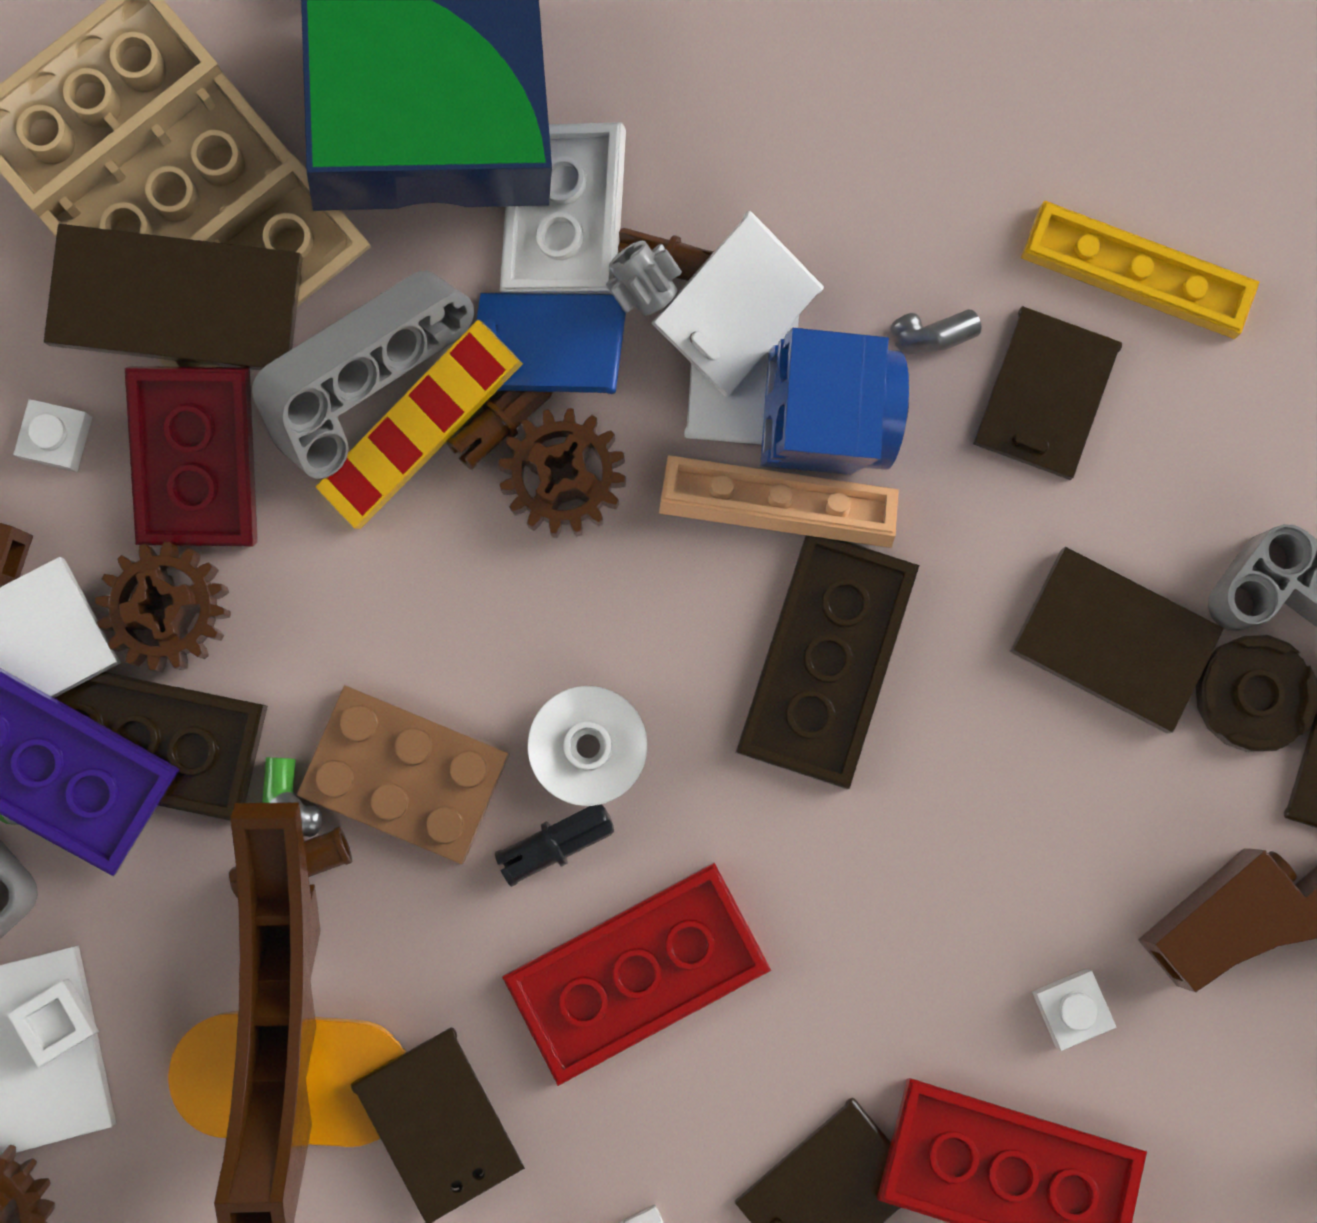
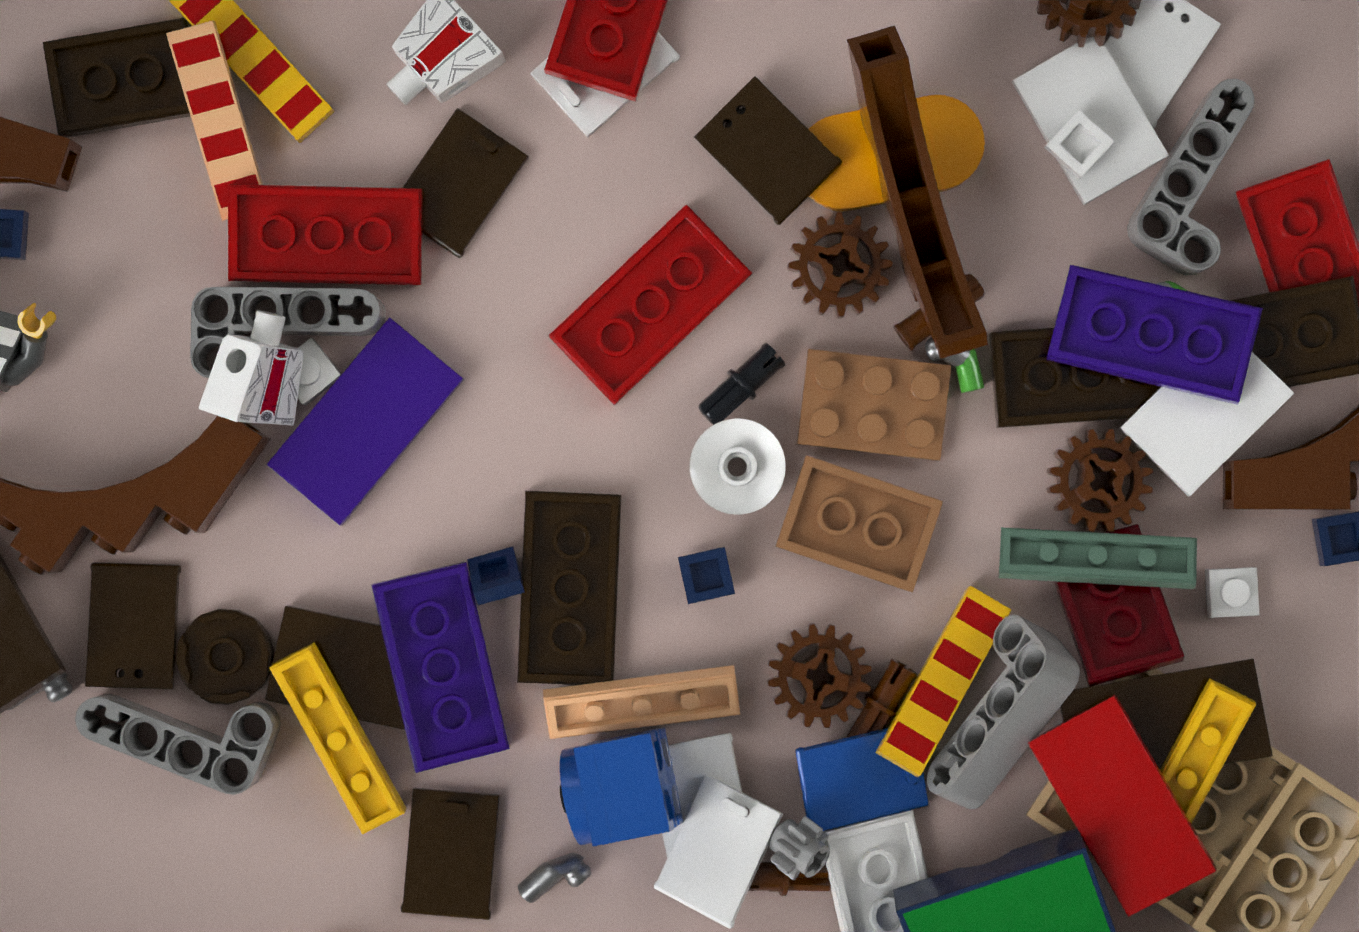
camera: 170 degrees right, 5 degrees up
(164, 229) = (1205, 744): none -> yellow tile
(192, 515) = (1098, 558): none -> sand green tile
(250, 215) = (1122, 805): none -> red tile
(414, 974) = (818, 256): none -> reddish brown gear
(463, 637) = (859, 523): none -> medium nougat plate
(661, 627) = (706, 575): none -> dark blue plate
(912, 696) = (495, 575): none -> dark blue plate
(1007, 609) = (440, 666): none -> dark purple tile
(1019, 928) = (365, 421): none -> dark purple tile
(1084, 1082) = (289, 303): none -> light grey beam
(1148, 1022) = (255, 376): none -> white torso
(1149, 560) = (338, 738): none -> yellow tile

